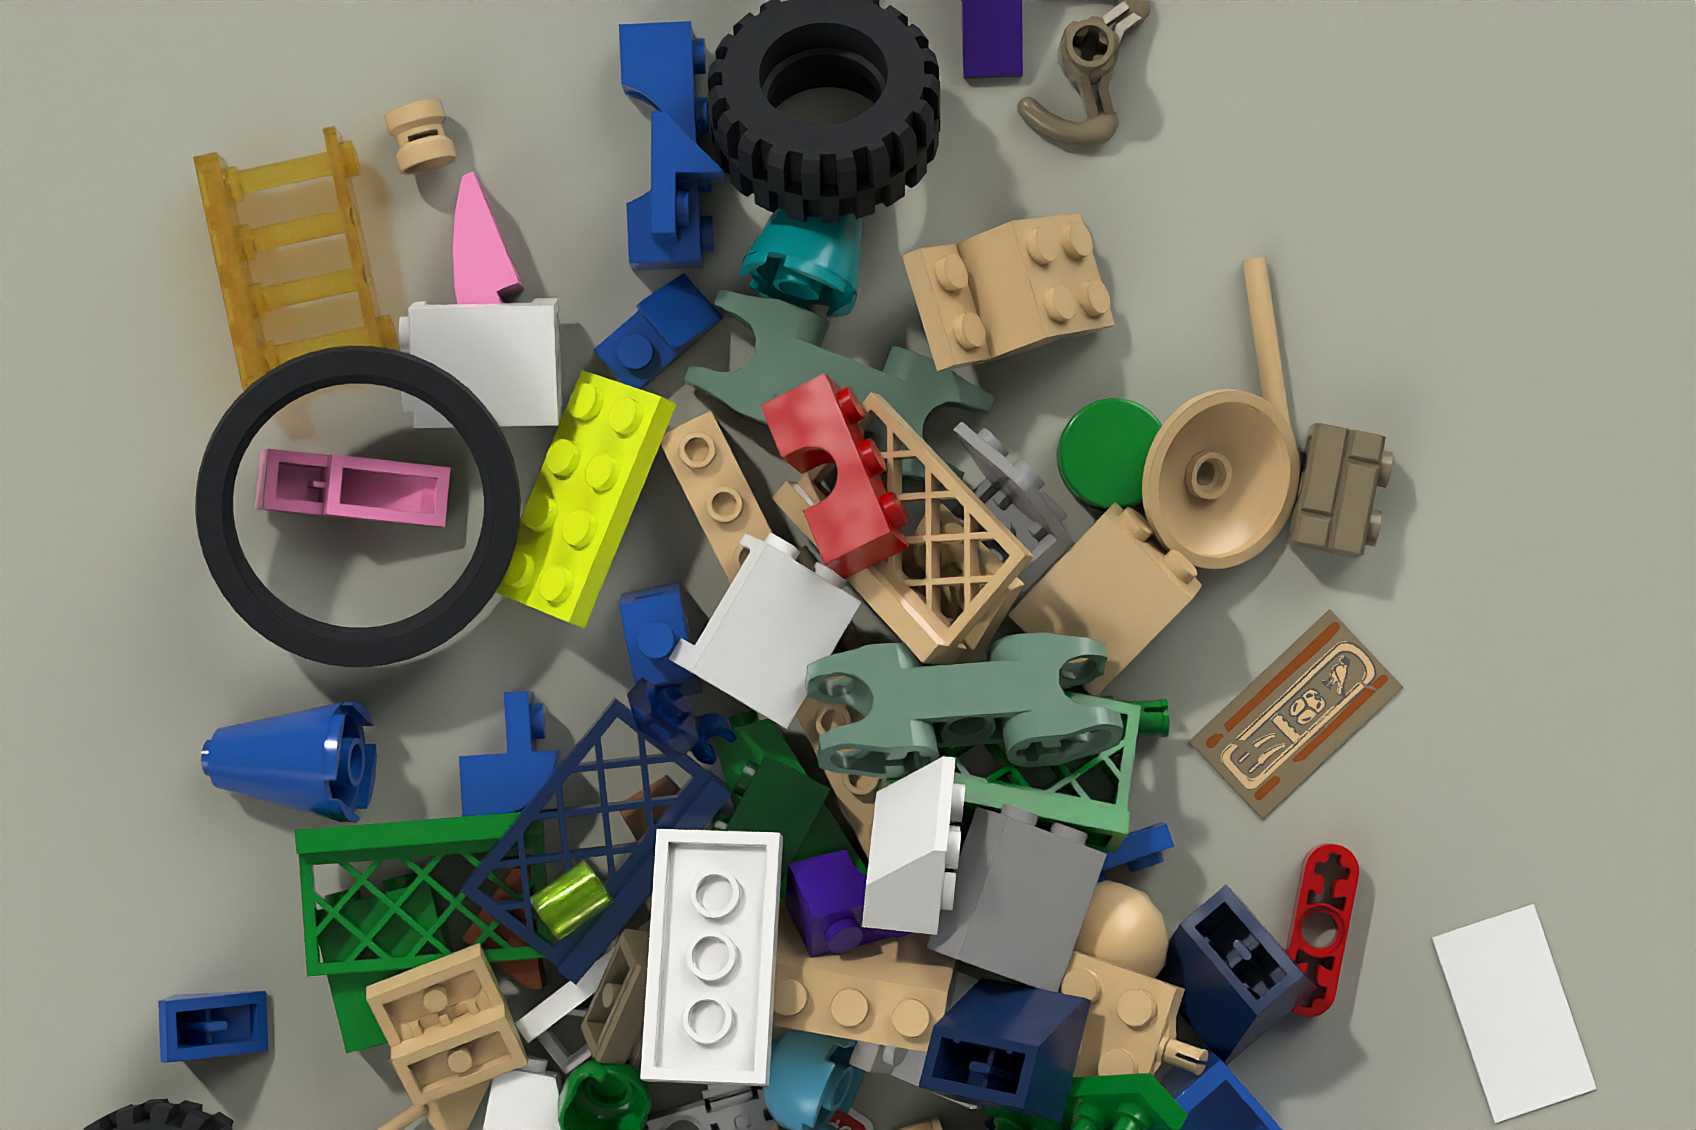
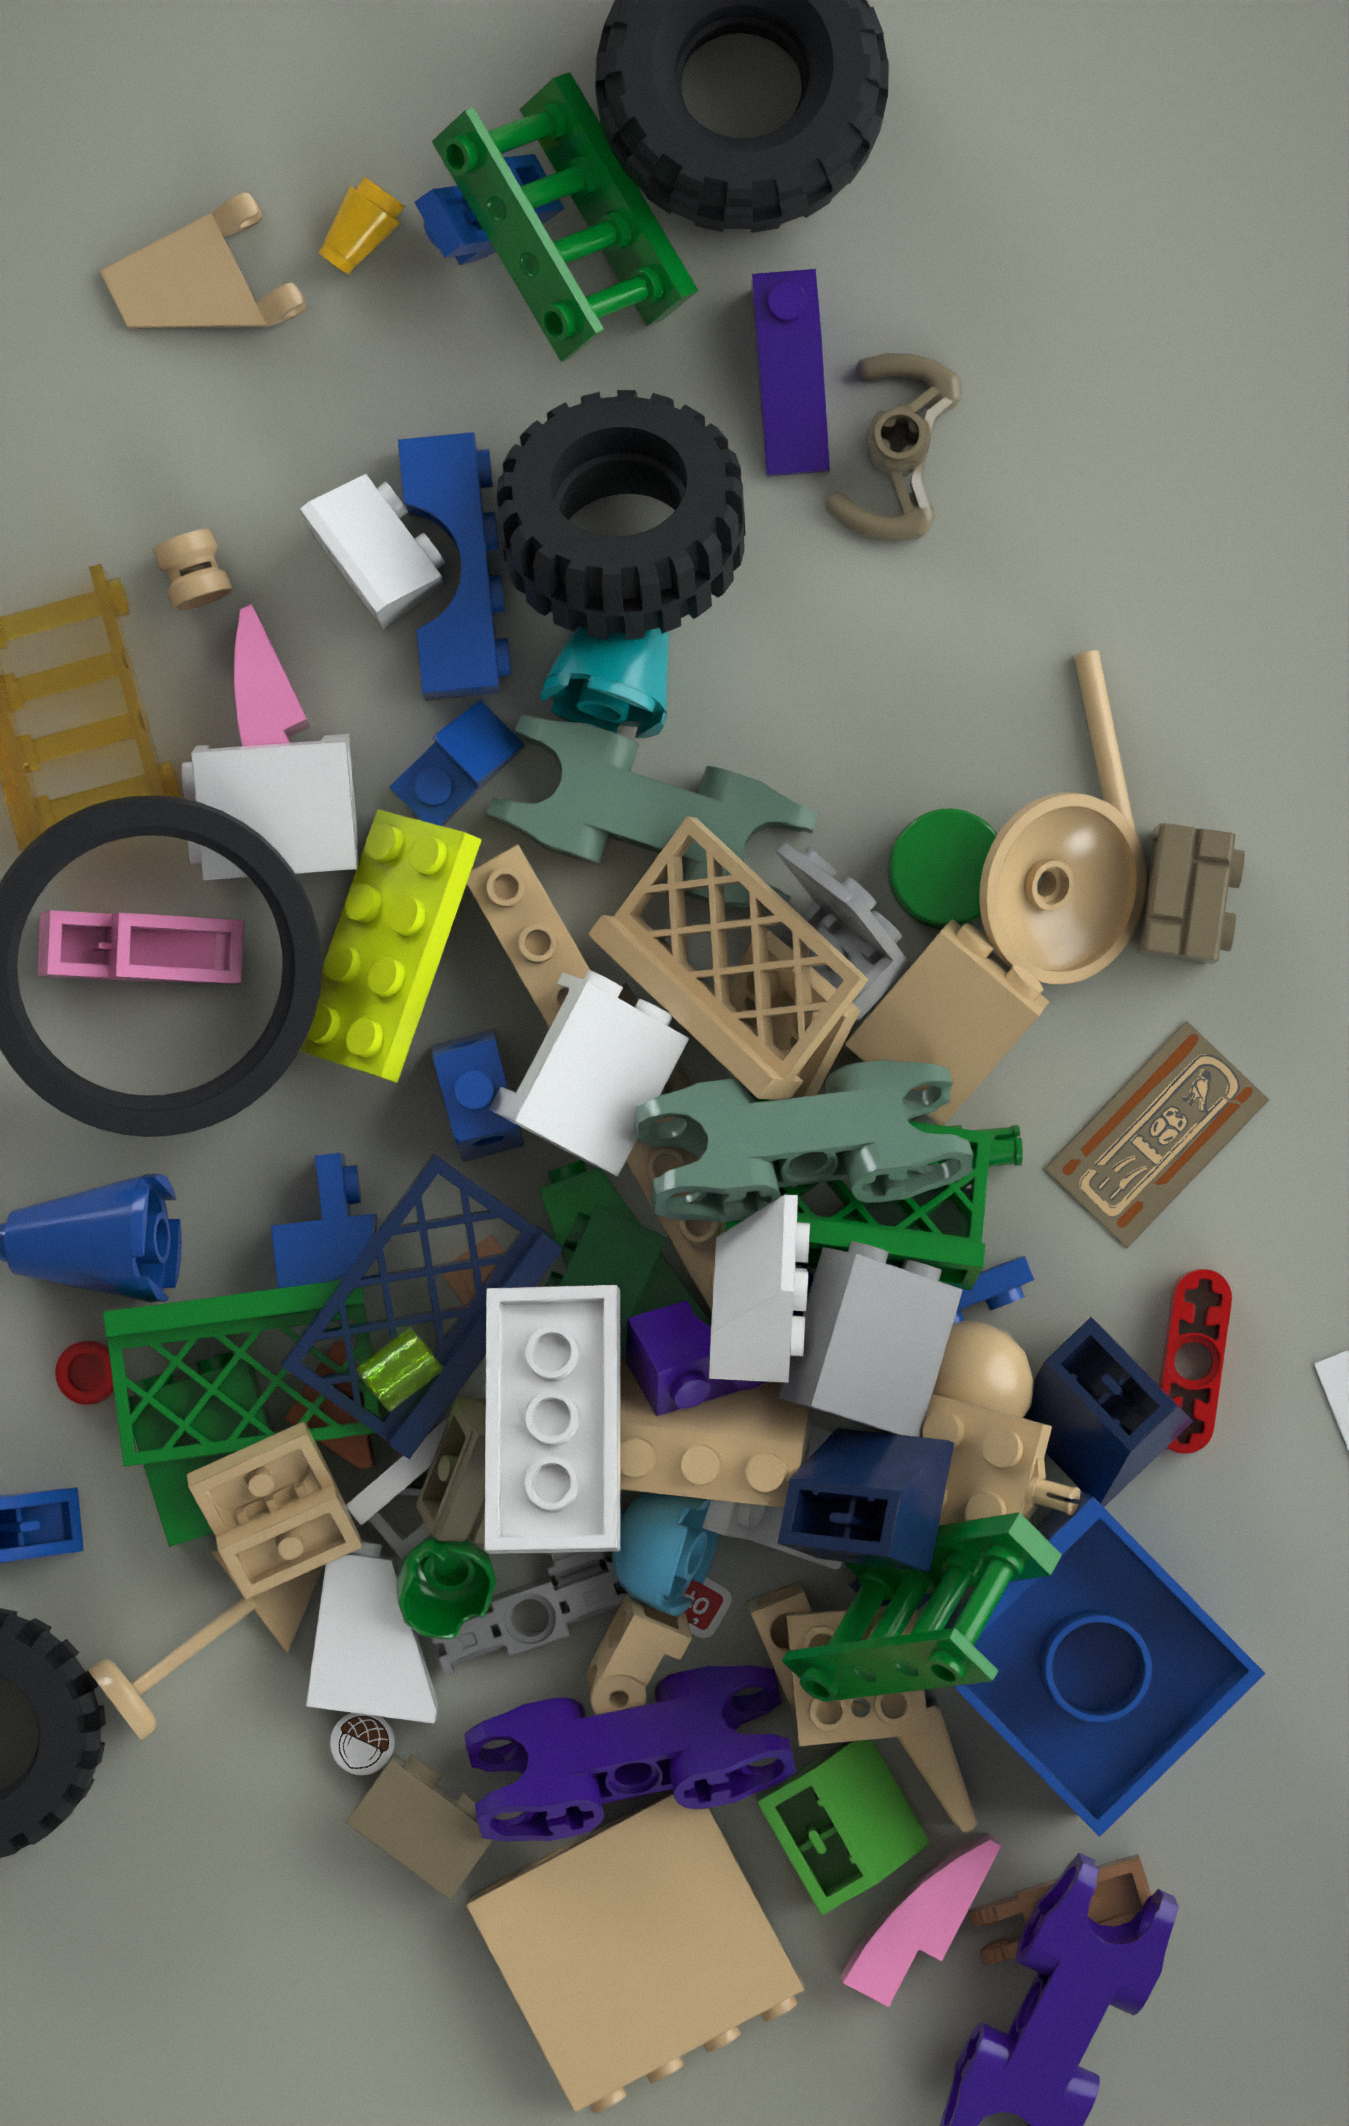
camera: 10 degrees left, 0 degrees up
(277, 884) = (85, 1372): none -> red tile
(591, 125) = (374, 549): none -> white slope
(668, 719) = (491, 1173): clear blue plate -> none
(675, 160) = (467, 580): blue slope -> none
(858, 519) = (681, 950): arch -> none
(1008, 290) = (827, 700): tan bracket -> none

